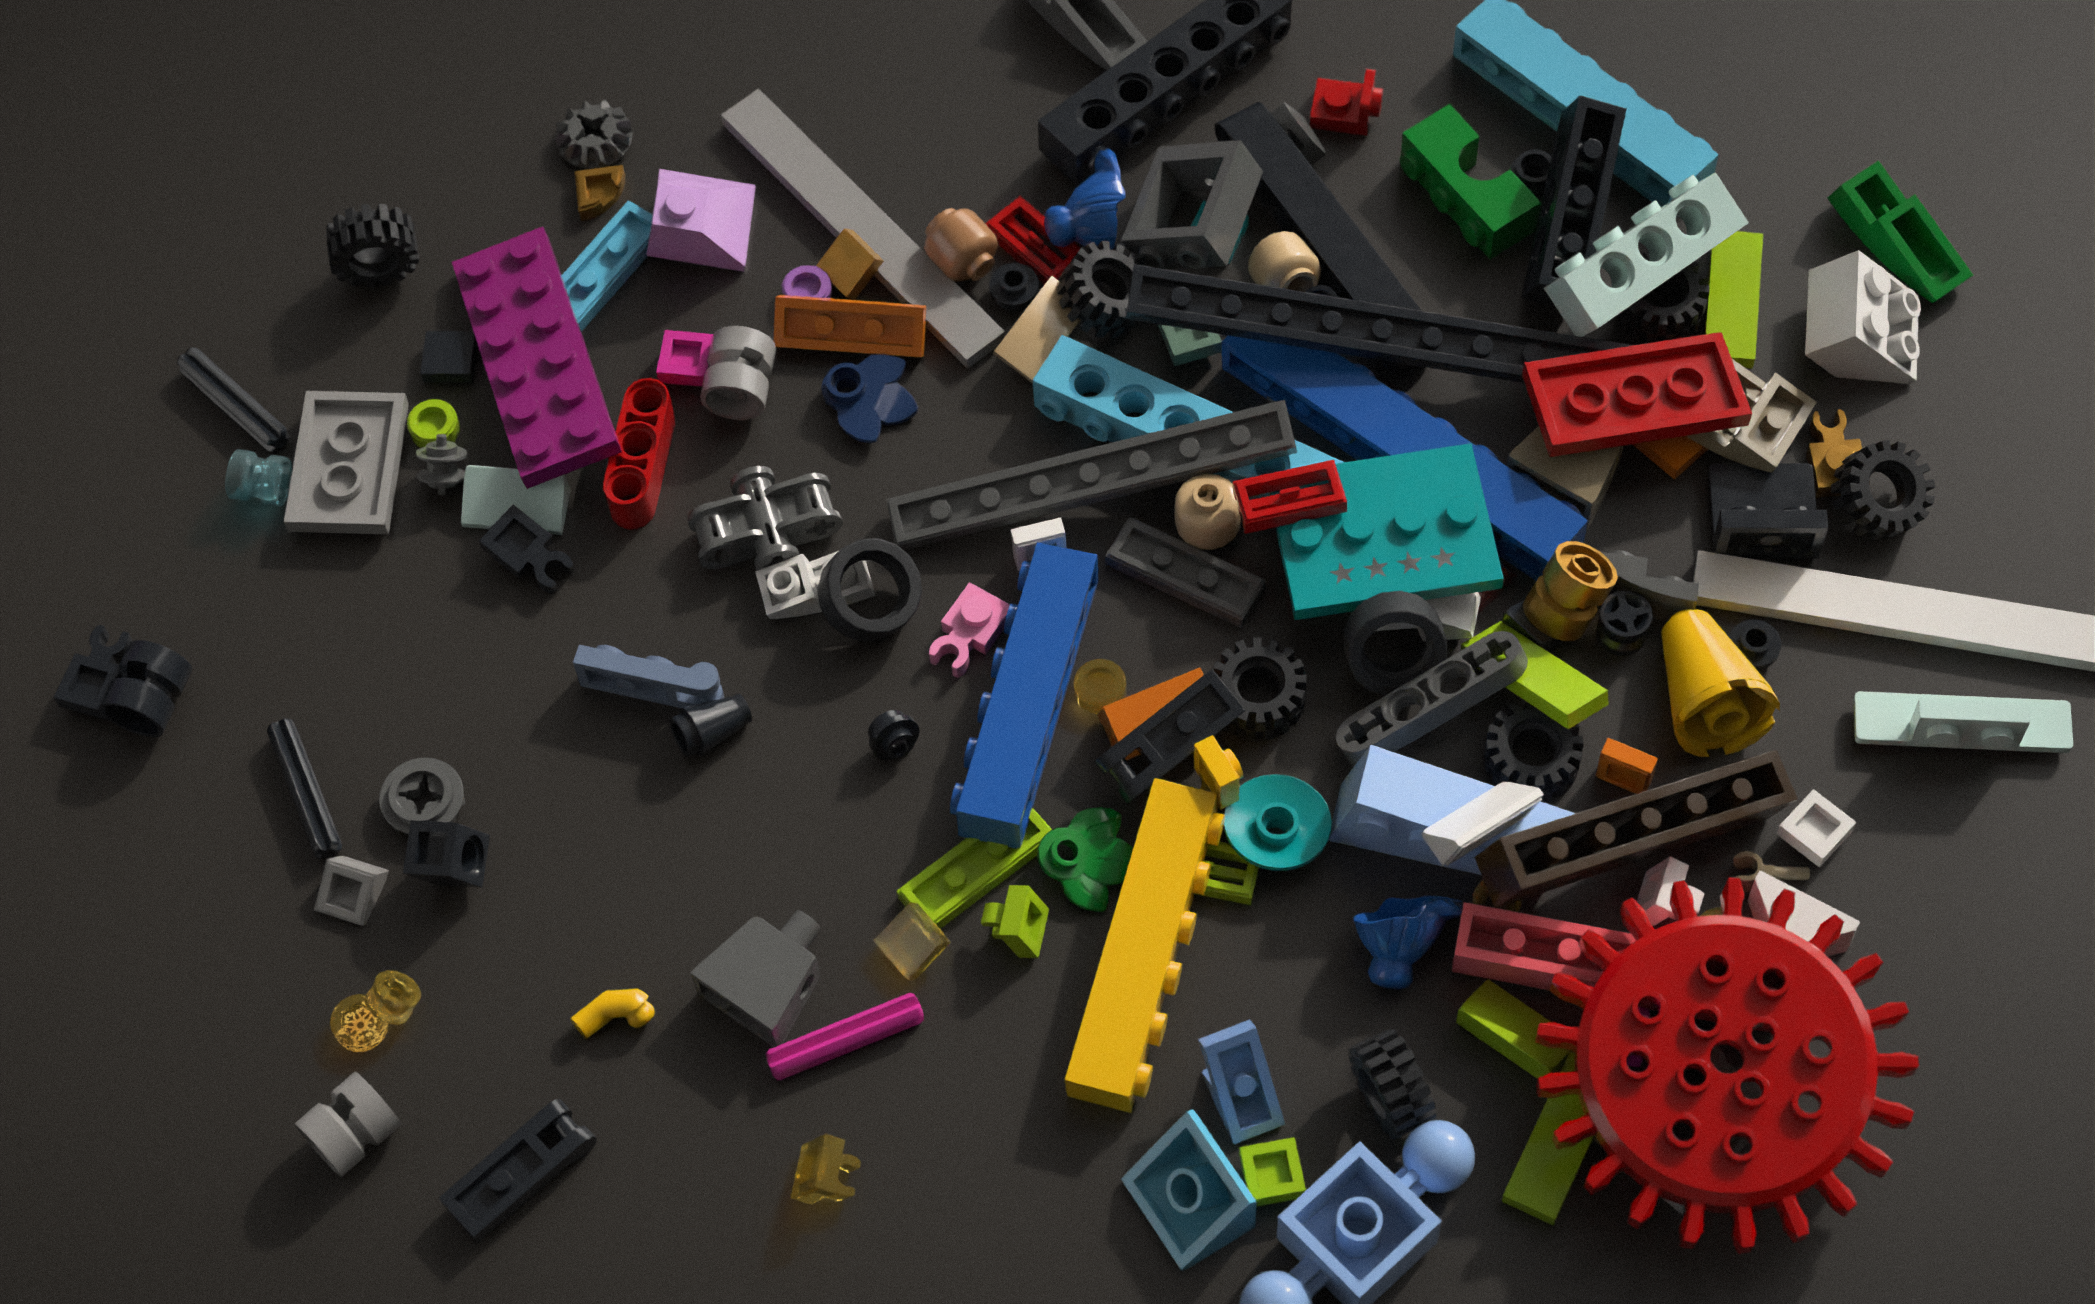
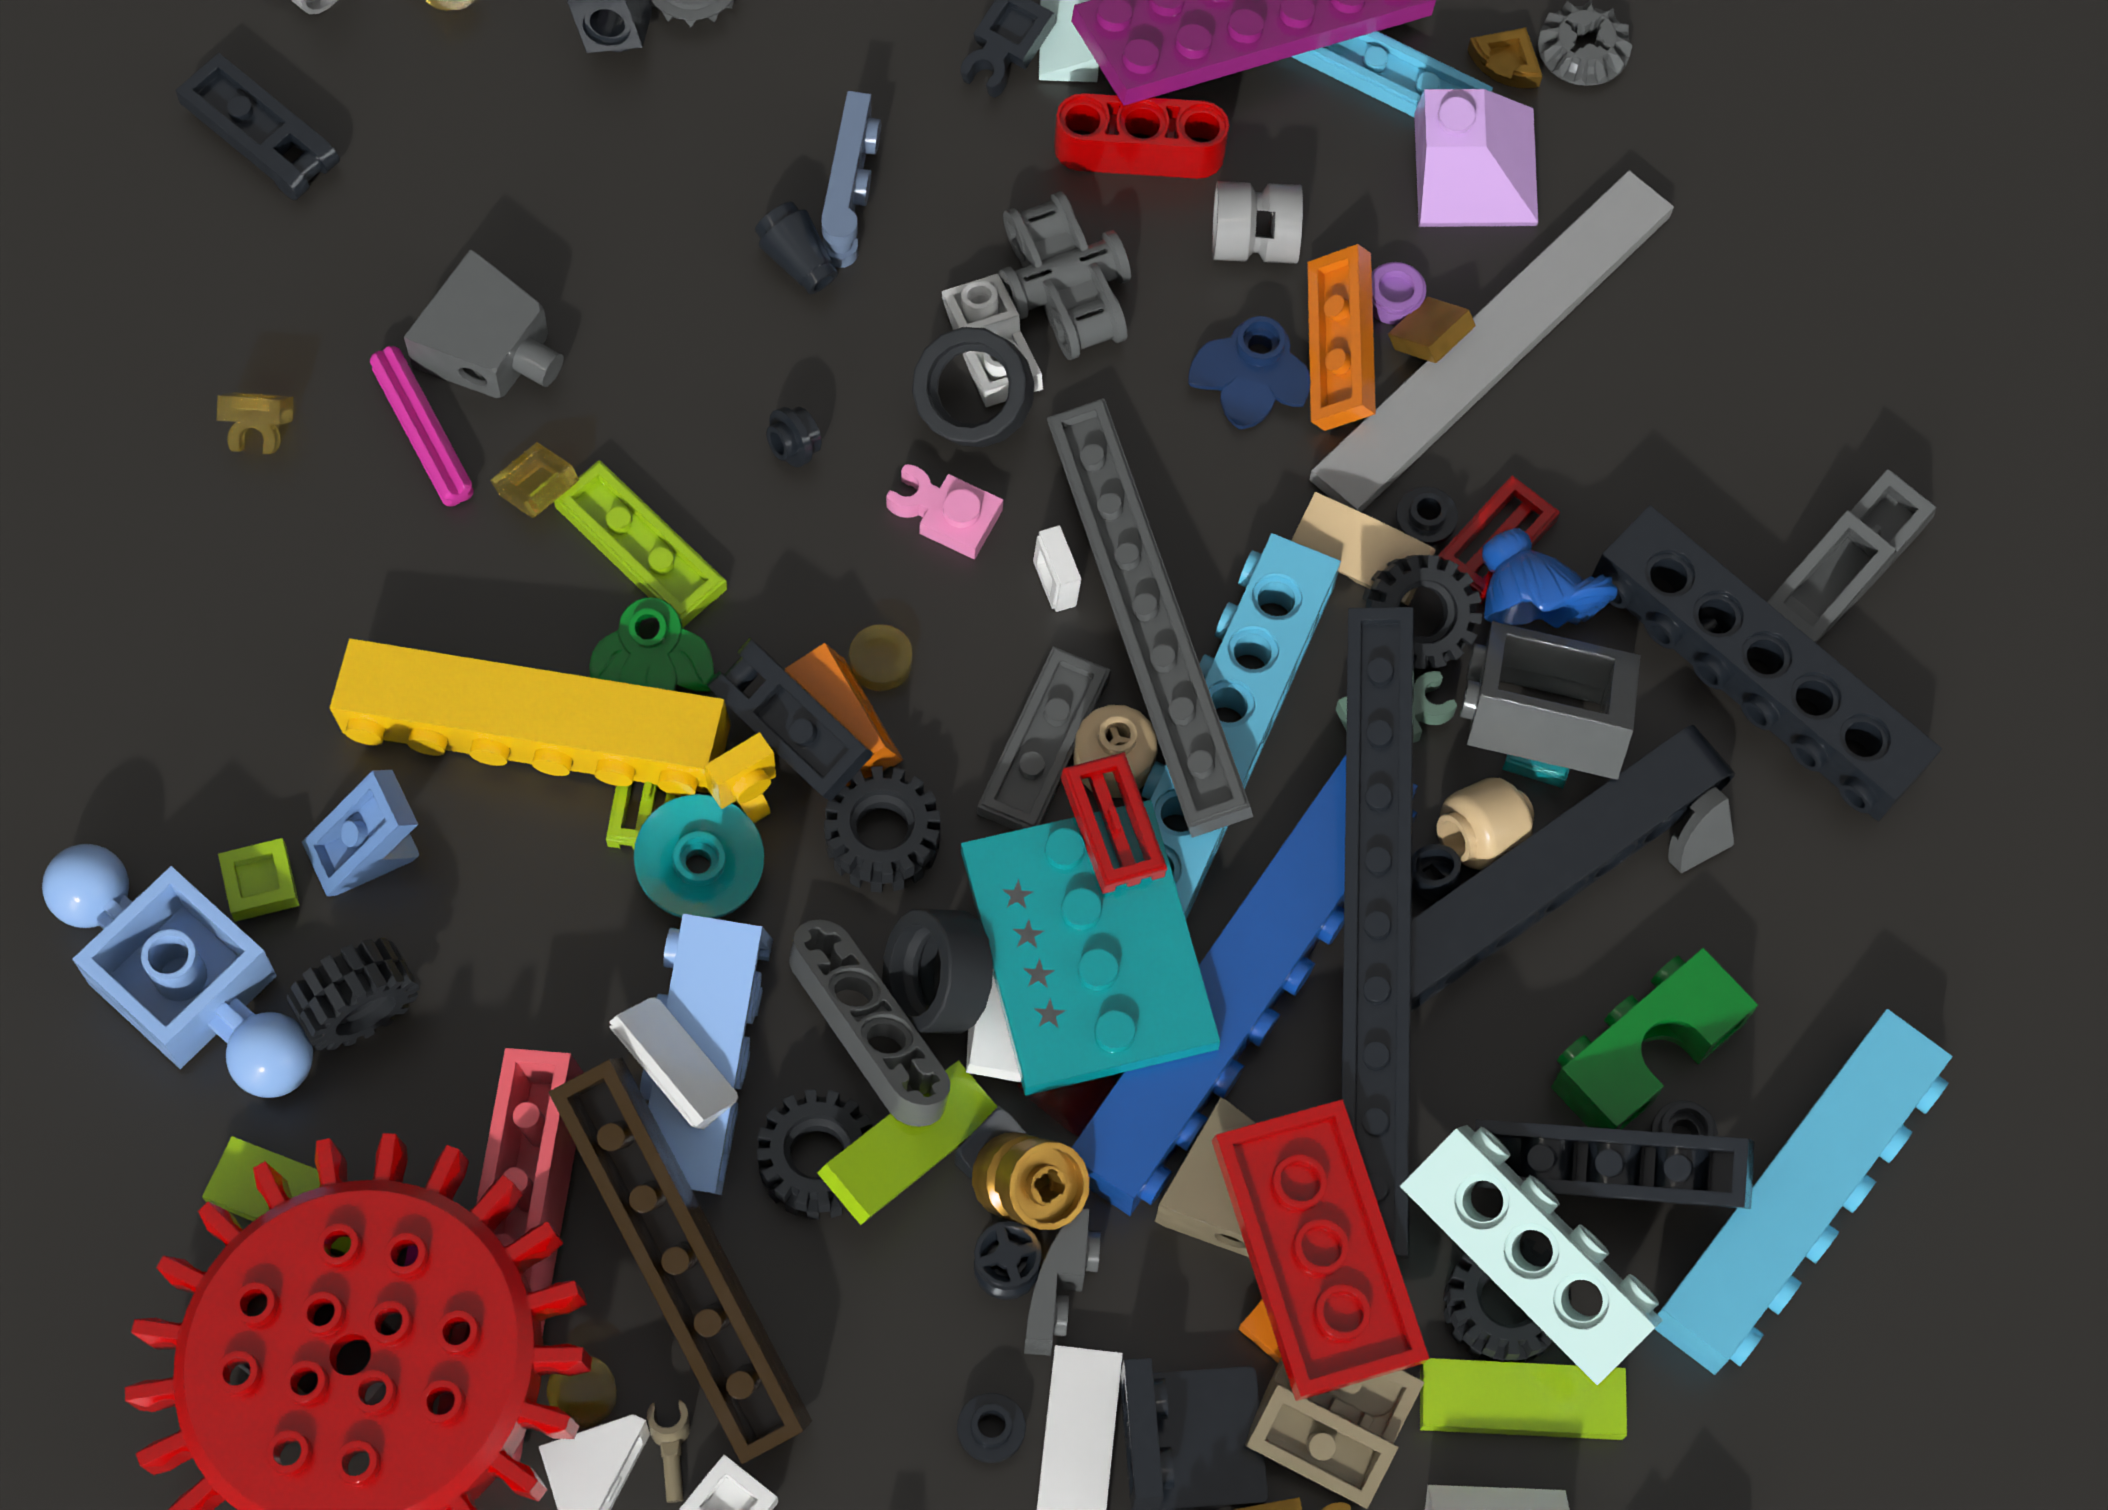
camera: 75 degrees right, 5 degrees up
(613, 1004) = (450, 198): yellow arm -> none
(683, 357) = (1278, 163): dark pink plate -> none
(960, 244) = (1469, 445): medium nougat head -> none
(1018, 921) = (559, 587): lime tile -> none
(1026, 695) = (849, 568): blue brick -> none
(1191, 1192) = (234, 797): medium azure slope -> none
(1346, 105) = (1760, 890): red bracket -> none
(1402, 934) = (559, 1004): blue hair -> none
(1509, 1029) = (456, 1118): lime slope -> none
(1626, 766) = (797, 1264): orange tile -> none
(1656, 889) = (624, 1316): tile -> none
(1713, 687) = (917, 1361): yellow cone -> none

